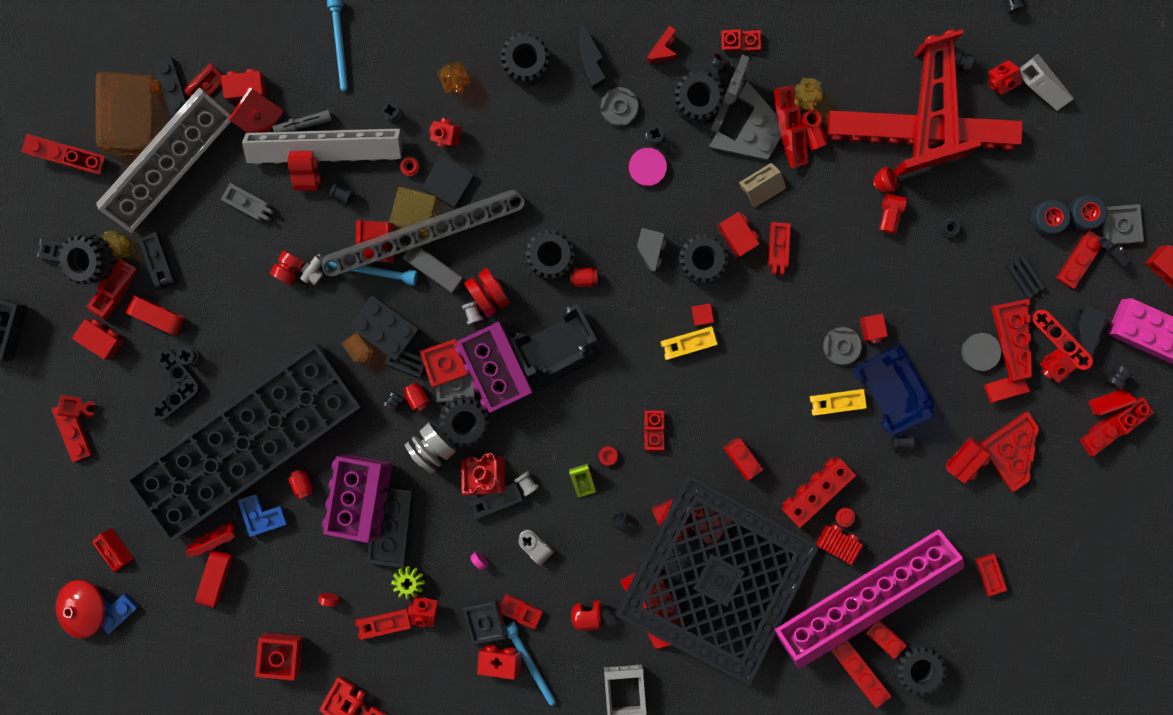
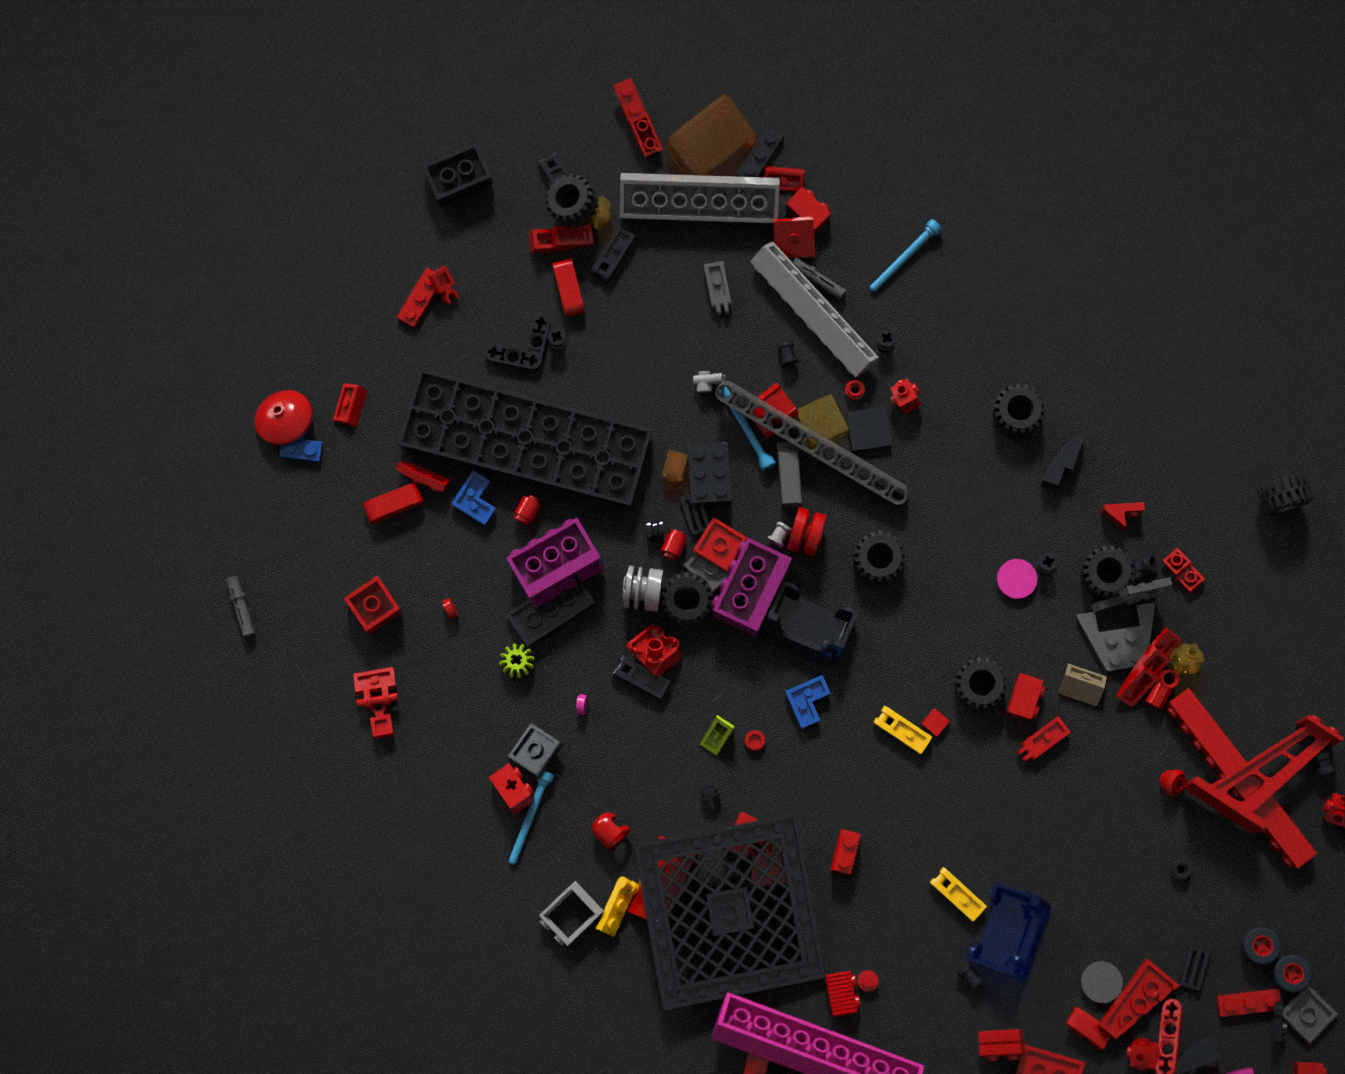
camera: 55 degrees right, 10 degrees down
(98, 339) = (512, 259): red brick -> none
(287, 268) = (693, 359): red wheel -> none
(304, 171) = (781, 310): red brick -> none
(384, 623) = (466, 669): red plate -> none
(423, 612) = (503, 692): red brick -> none
(454, 78) = (955, 367): clear orange brick -> none
(520, 611) = (567, 773): red slope -> none
(526, 483) = (677, 691): light grey bush -> none
(537, 549) = (630, 744): light grey piece -> none
(583, 277) = (883, 600): red brick -> none
(605, 394) = (802, 699): none -> blue plate
(619, 106) = (1045, 516): dark grey tile -> none
(646, 655) = (617, 905): none -> yellow plate
(649, 247) = (954, 632): dark grey slope -> none
(654, 430) = (806, 761): red slope -> none
(818, 491) = (870, 939): red brick -> none
(842, 346) = (1007, 860): dark grey tile -> none
(873, 328) = (1044, 873): red brick -> none
(893, 208) = (1154, 808): red piece -> none

